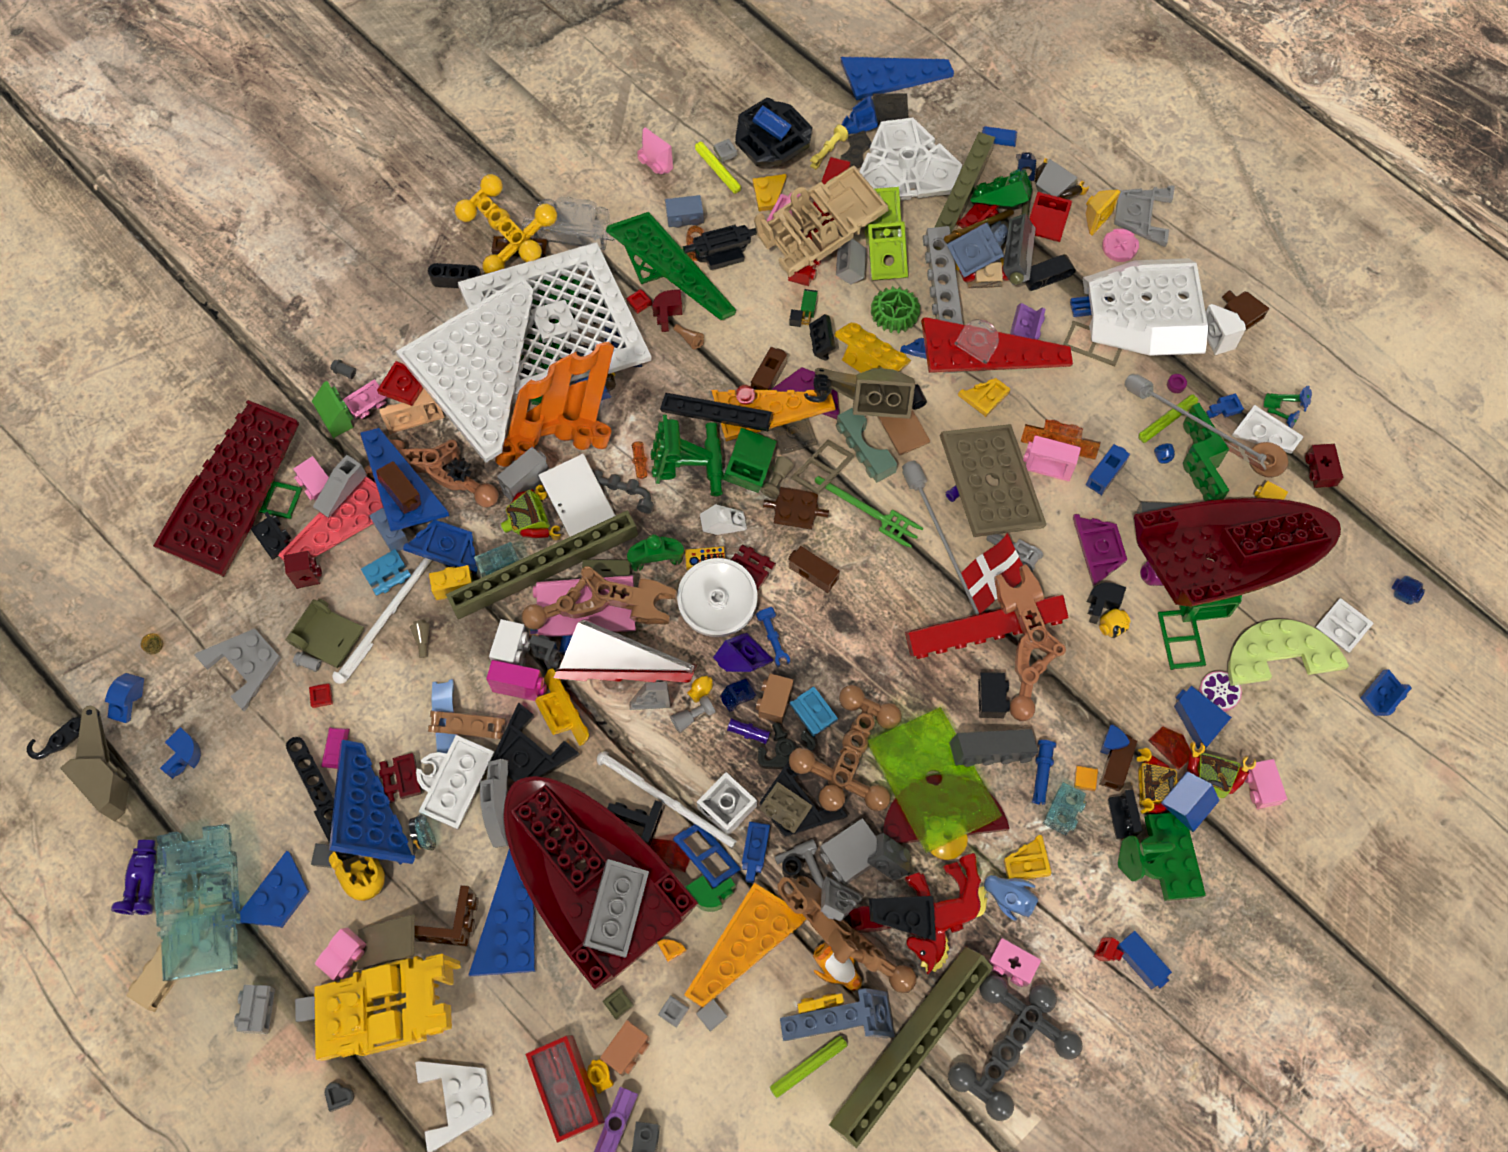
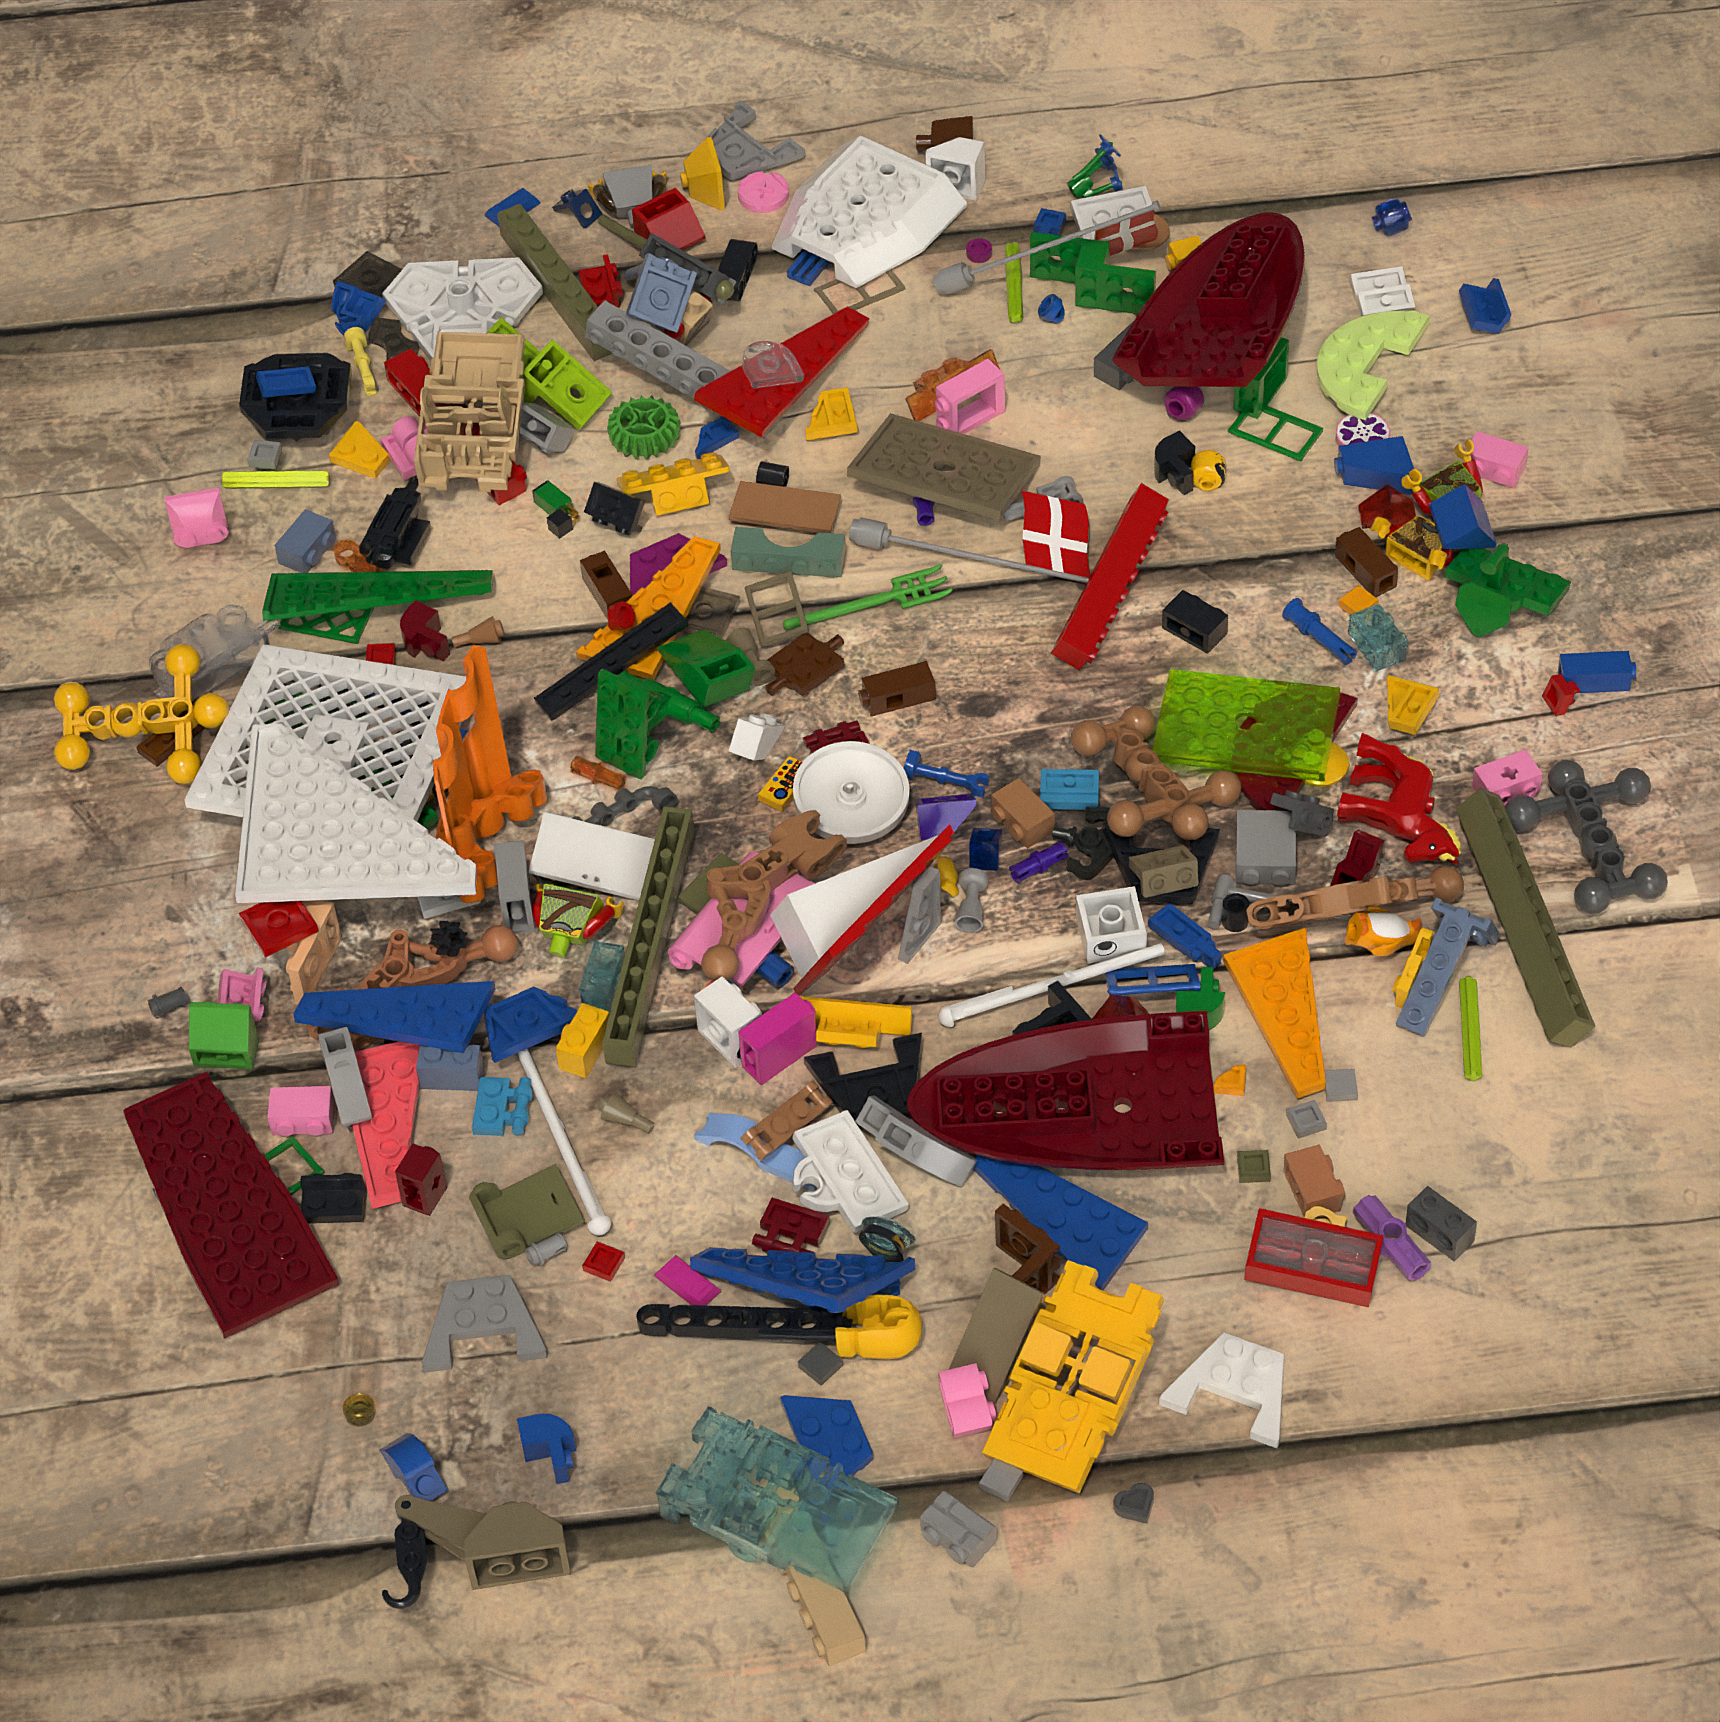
camera: 50 degrees left, 15 degrees down
(139, 868) = (667, 1563): dark purple piece -> none
(398, 487) = (422, 1000): reddish brown brick -> none
(446, 273) = (154, 814): black beam -> none
(546, 650) = (767, 985): dark grey bracket -> none
(616, 908) = (1147, 1088): light grey plate -> none
(654, 550) = (742, 807): green connector -> none
(838, 899) = (1310, 880): light grey wing -> none
(873, 391) = (748, 486): dark tan slope -> none
(886, 75) = (321, 254): blue wing -> none
(905, 914) = (1382, 823): black wing -> none
(991, 220) = (622, 297): pearl gold bar -> none
(993, 747) = (1259, 647): dark grey brick -> none
(1004, 191) = (600, 234): green slope -> none
(1012, 895) = (1435, 736): medium blue animal -> none
(1023, 602) = (1121, 516): nougat piece -> none
(1027, 322) = (780, 322): medium lavender bracket -> none
(1100, 546) = (1108, 428): magenta wing -> none
(1107, 469) = (1026, 366): blue brick -> none
(1114, 740) = (1336, 548): blue tile -> none
(1125, 815) = (1429, 588): black bracket -> none
(1324, 465) = (1193, 192): dark red brick -> none

